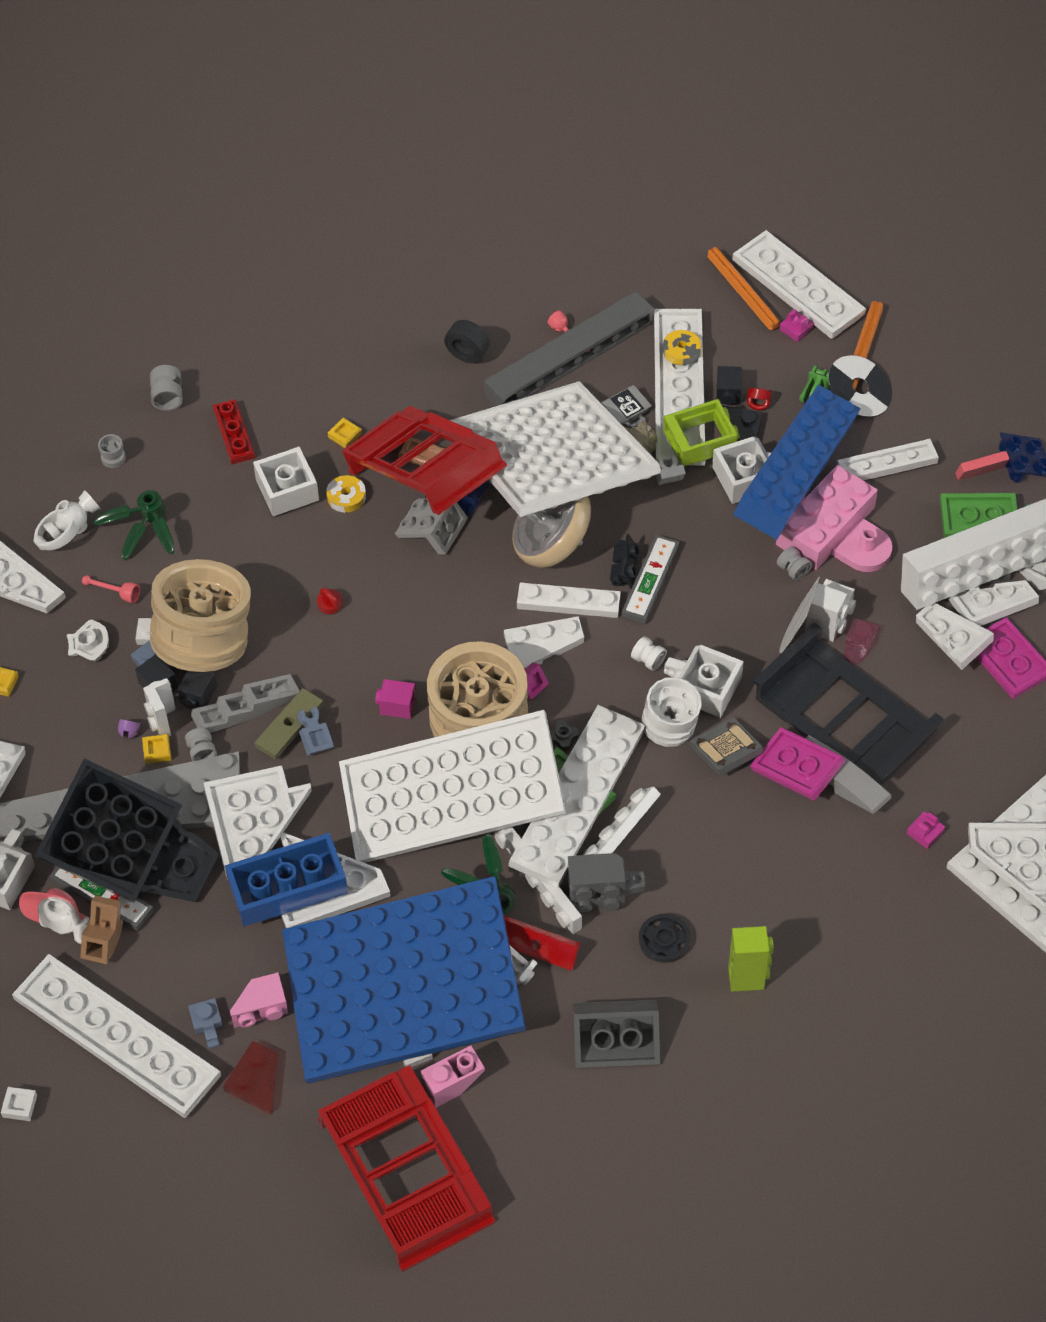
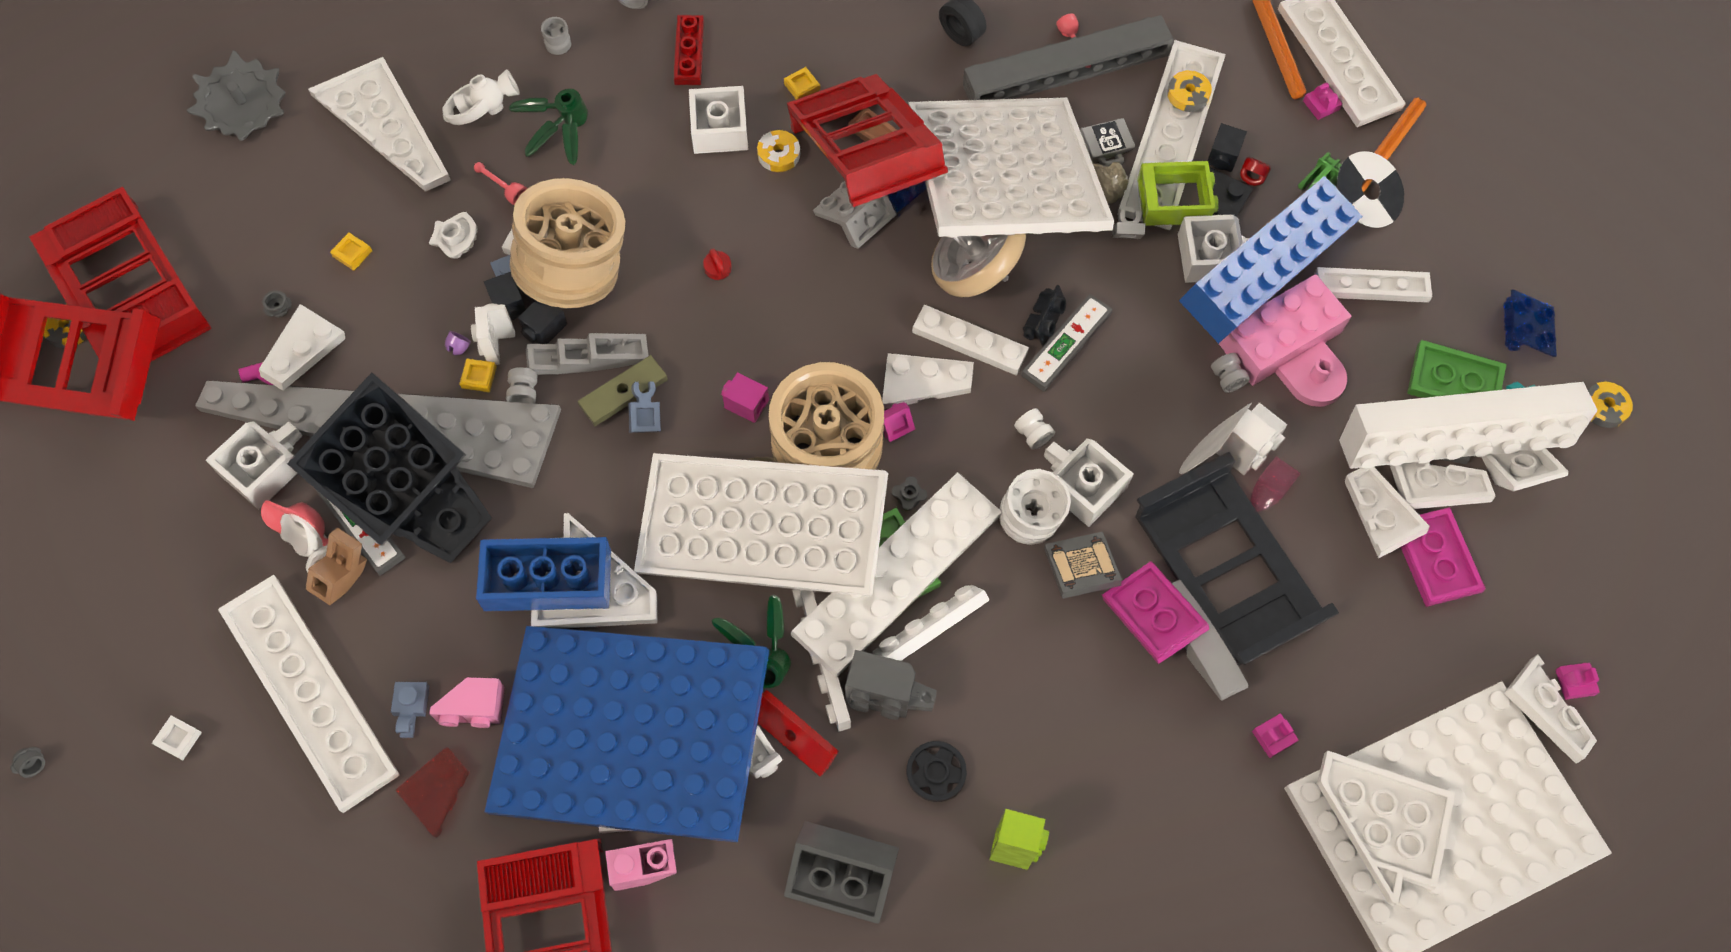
camera: 15 degrees right, 10 degrees up
(252, 811) = (541, 483): white wing -> none
(982, 465) = (1478, 320): coral tile -> none

